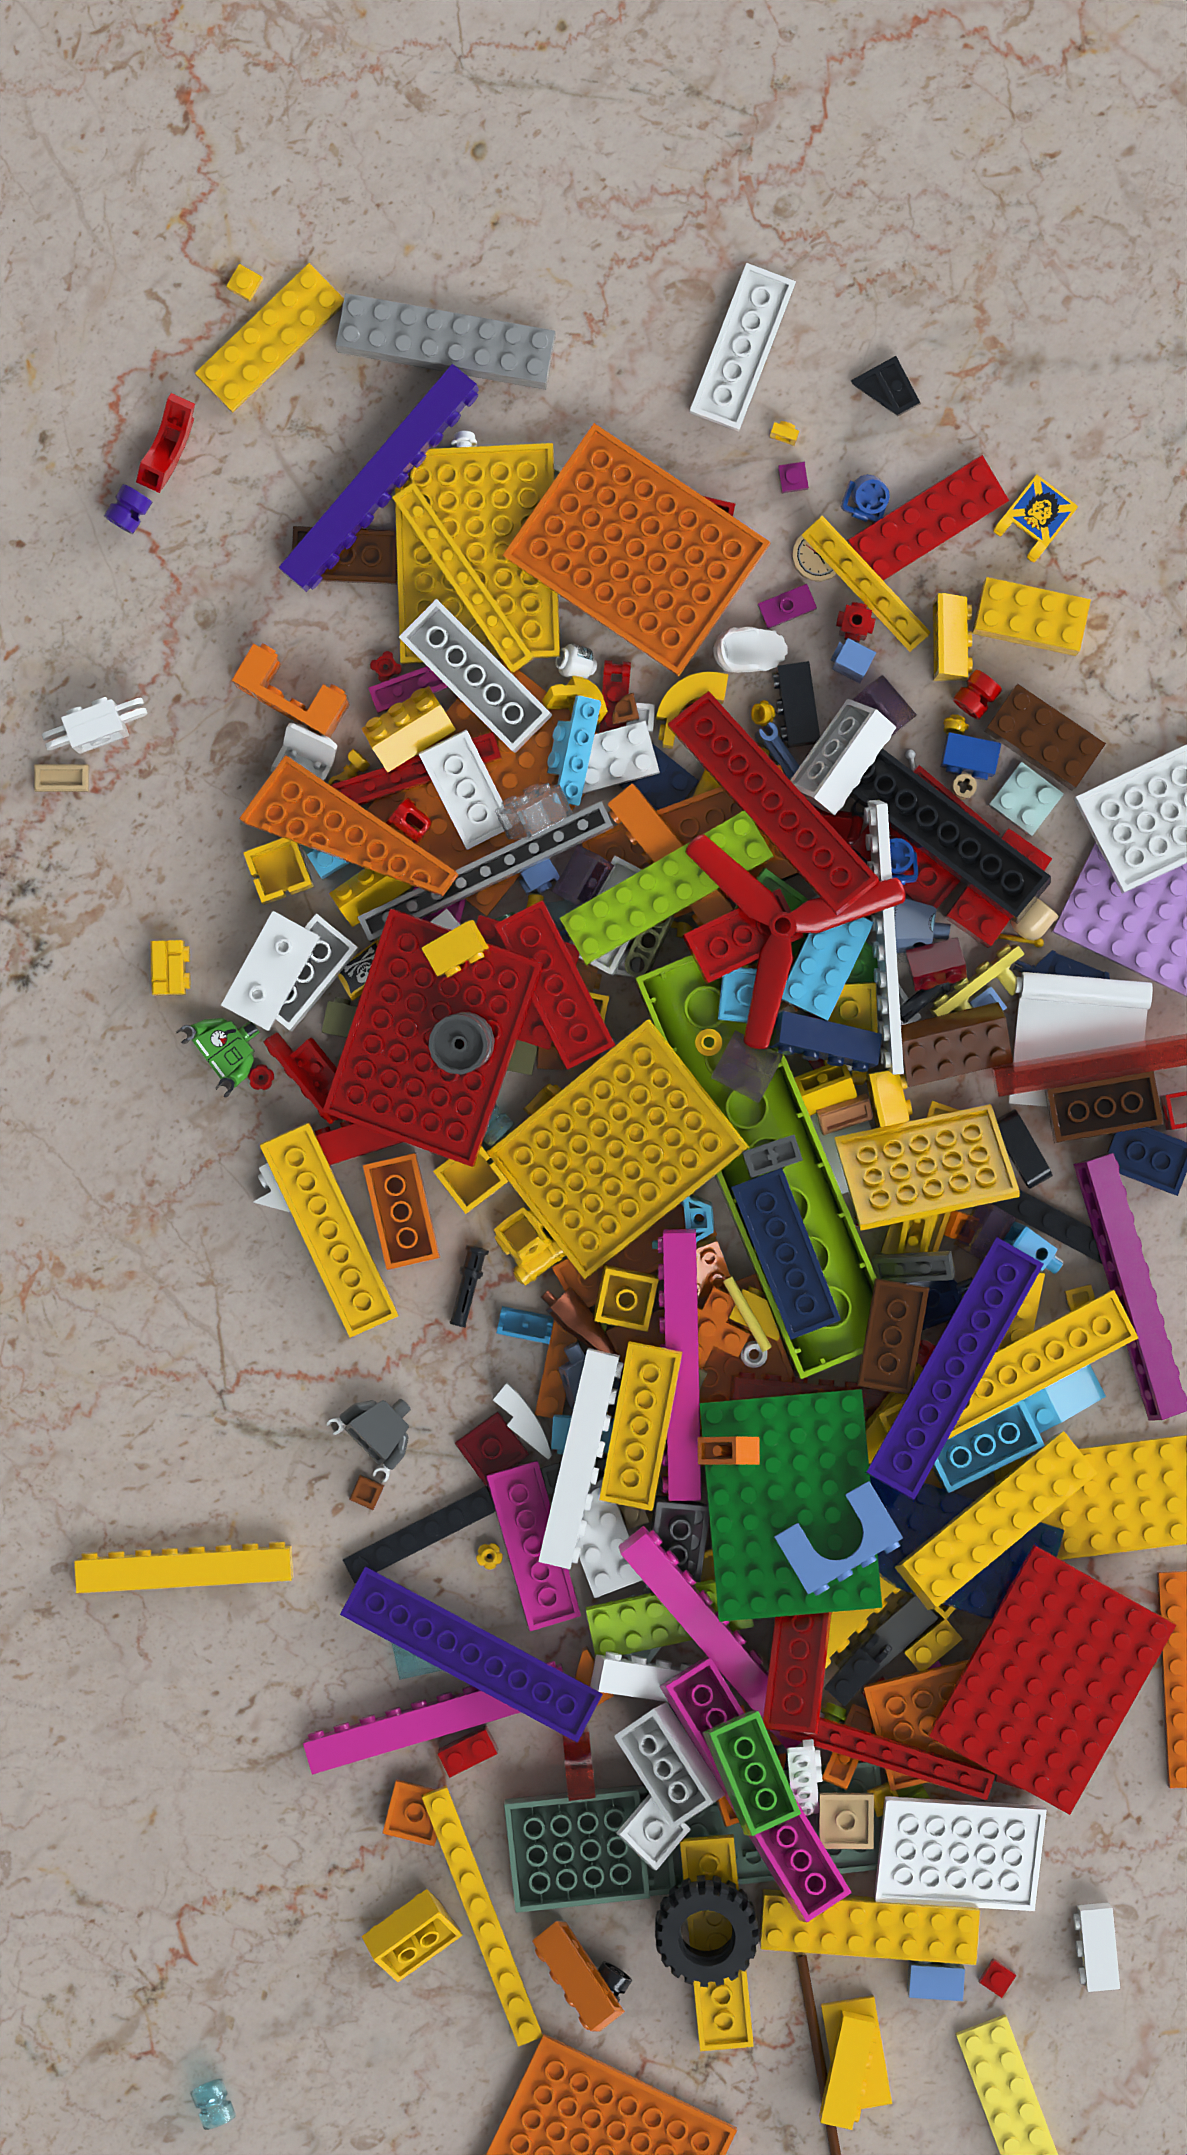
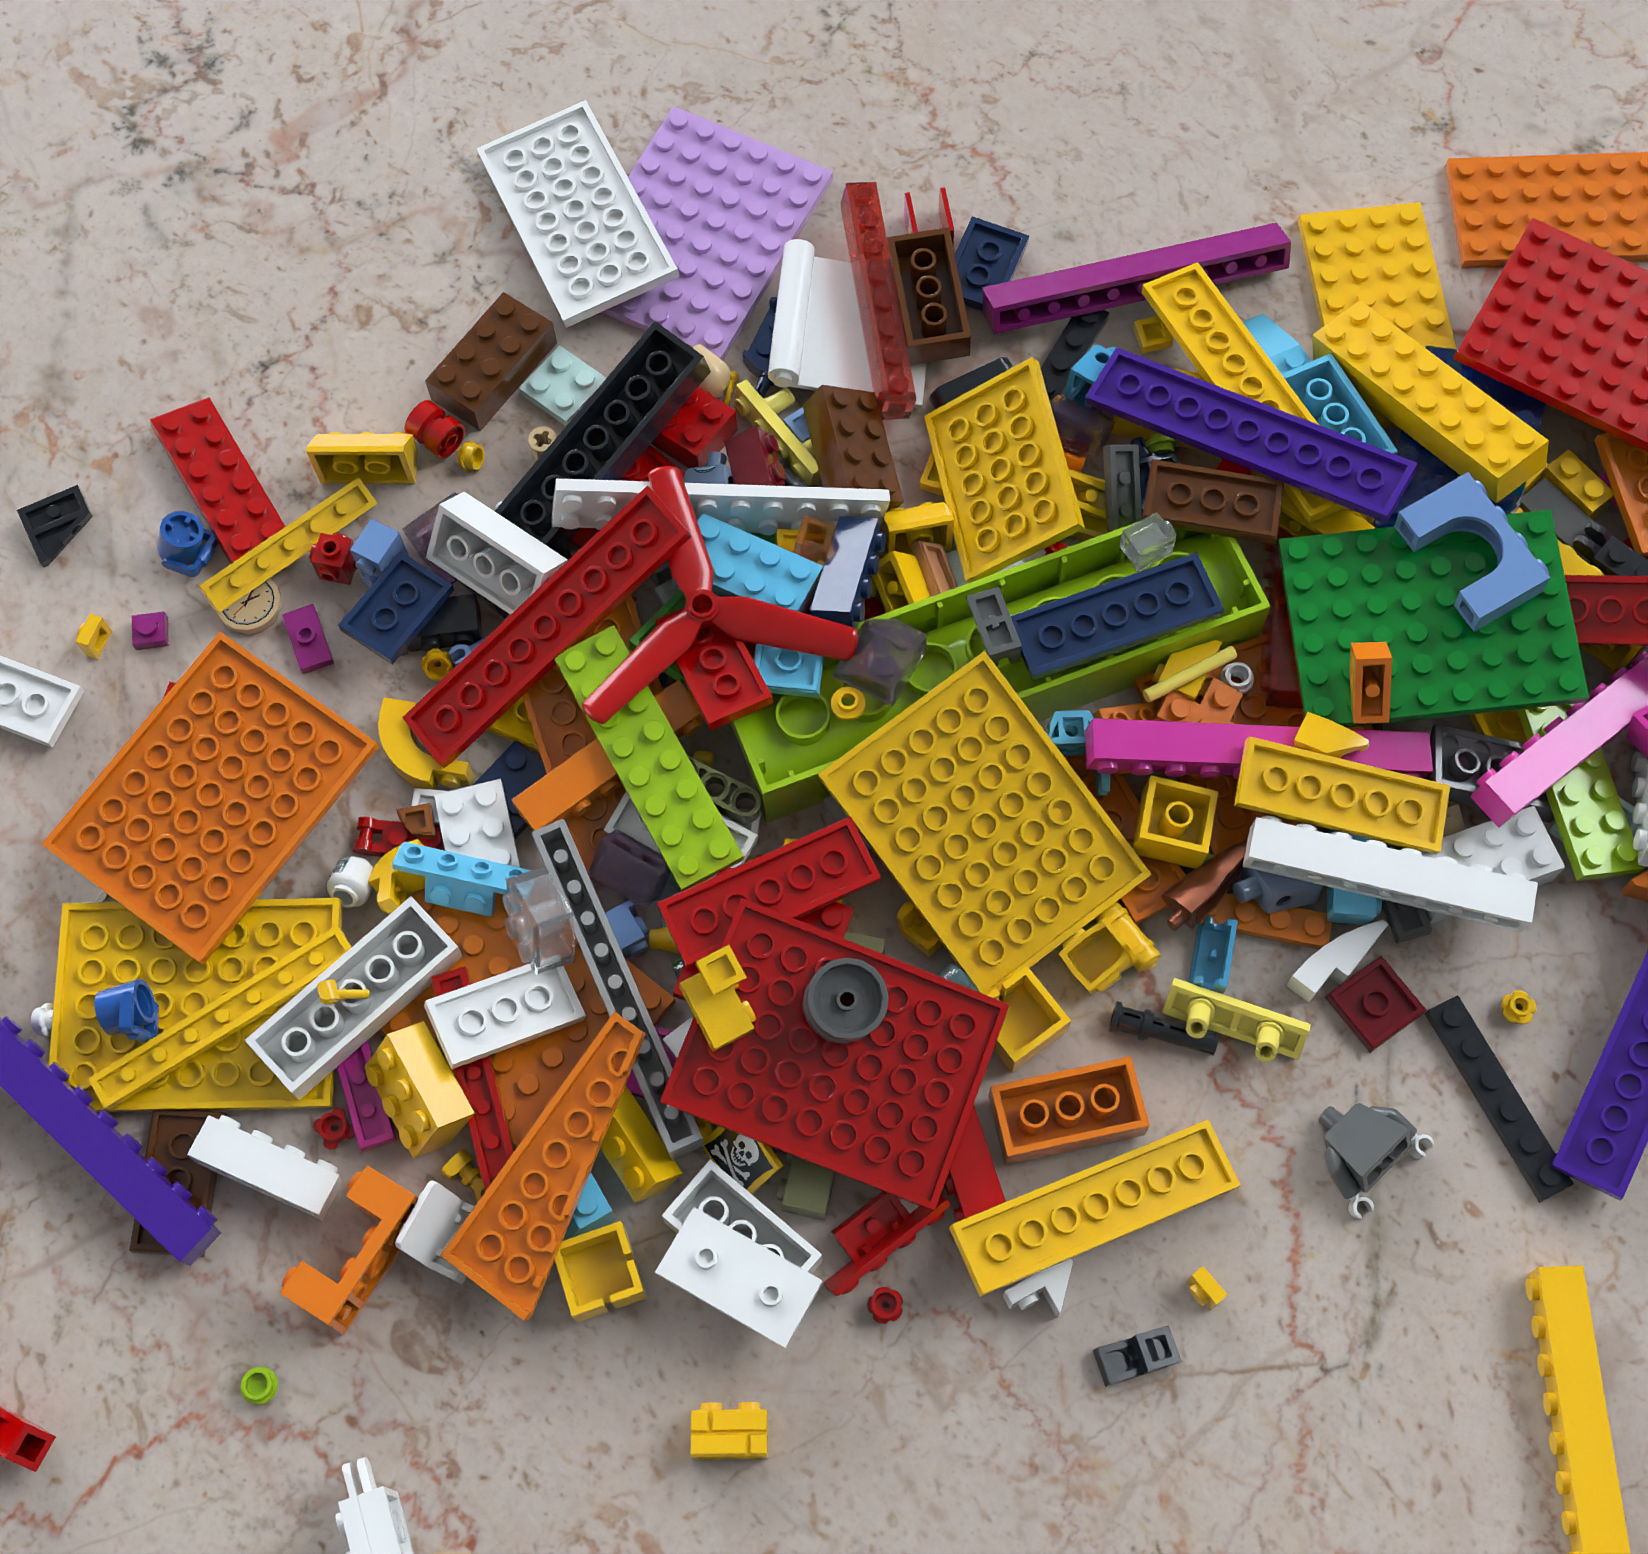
camera: 85 degrees left, 20 degrees down
(127, 509) = (72, 1484): dark purple wheel -> none
(199, 631) = (259, 1385): none -> lime plate
(224, 1048) = (845, 1353): bright green torso -> none
(227, 1258) = (1136, 1356): none -> black slope
(273, 1308) = (1205, 1288): none -> yellow plate
(352, 620) = (266, 1167): none -> white brick
(366, 1492) = (1447, 1168): dark orange tile -> none
(409, 811) = (536, 1095): red piece -> none
(464, 506) = (127, 1009): none -> blue piece
(471, 658) = (330, 994): none -> yellow hand
(472, 1352) = (1235, 1018): none -> light yellow plate
(474, 950) = (720, 970): none -> yellow plate
(523, 1518) = (1485, 956): dark pink plate -> none
(549, 1059) = (865, 921): dark orange tile -> none
(686, 1416) = (1328, 737): none -> yellow slope
(749, 649) = (355, 680): white hair -> none
(802, 678) = (396, 607): none -> dark blue plate
(852, 1282) = (1148, 541): none -> clear brick
(853, 1012) = (814, 539): none -> clear orange brick
(970, 756) = (506, 439): blue brick -> none
(1031, 616) = (347, 372): yellow brick -> none
(1039, 513) = (229, 368): flag -> none

